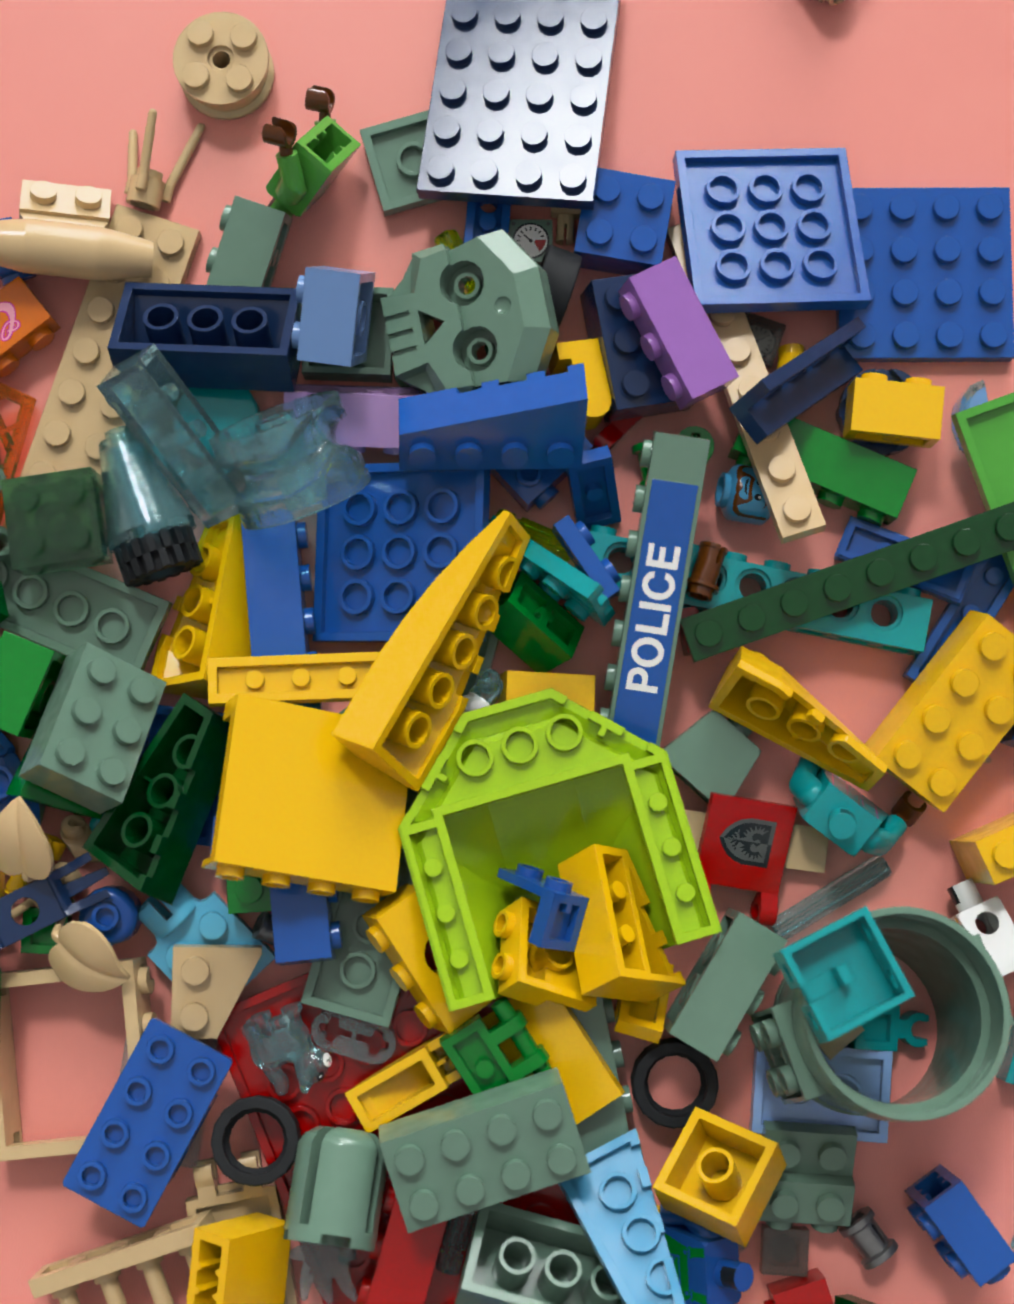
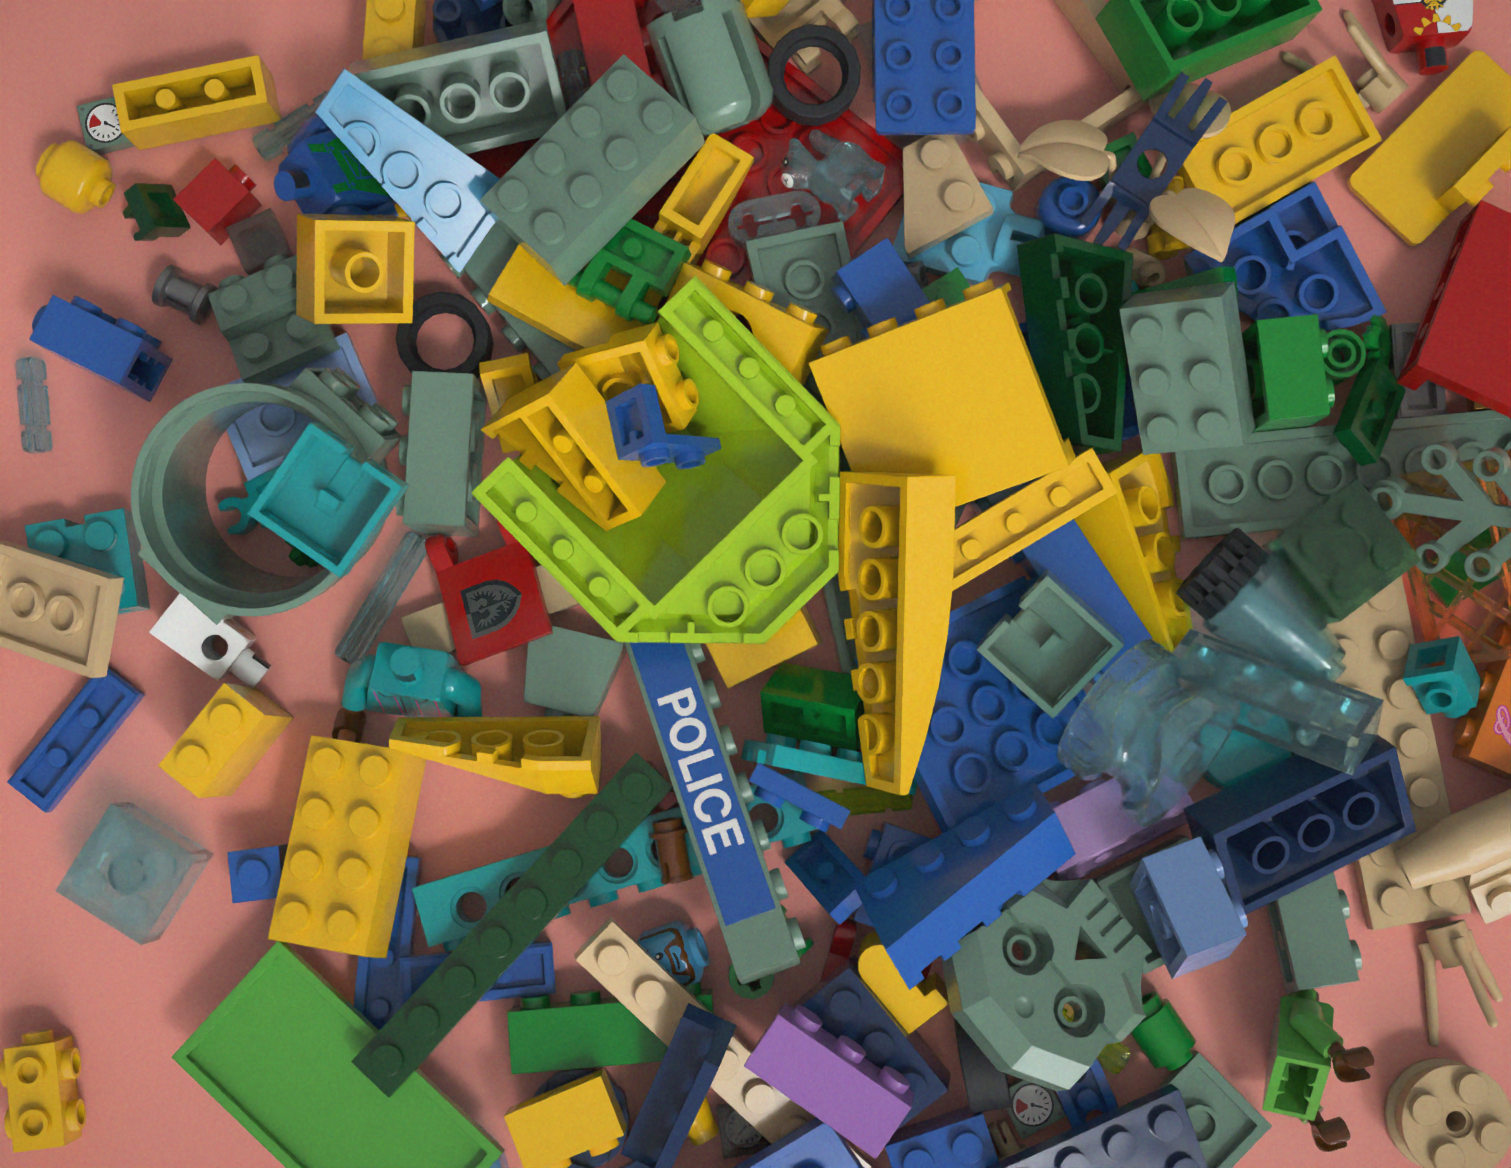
camera: 155 degrees right, 0 degrees up
(37, 375) = (1447, 687): none -> teal brick
(325, 570) = (1051, 644): none -> sand green piece
(401, 236) = (1163, 1034): none -> green brick
(485, 690) = (828, 609): clear light blue arm -> none

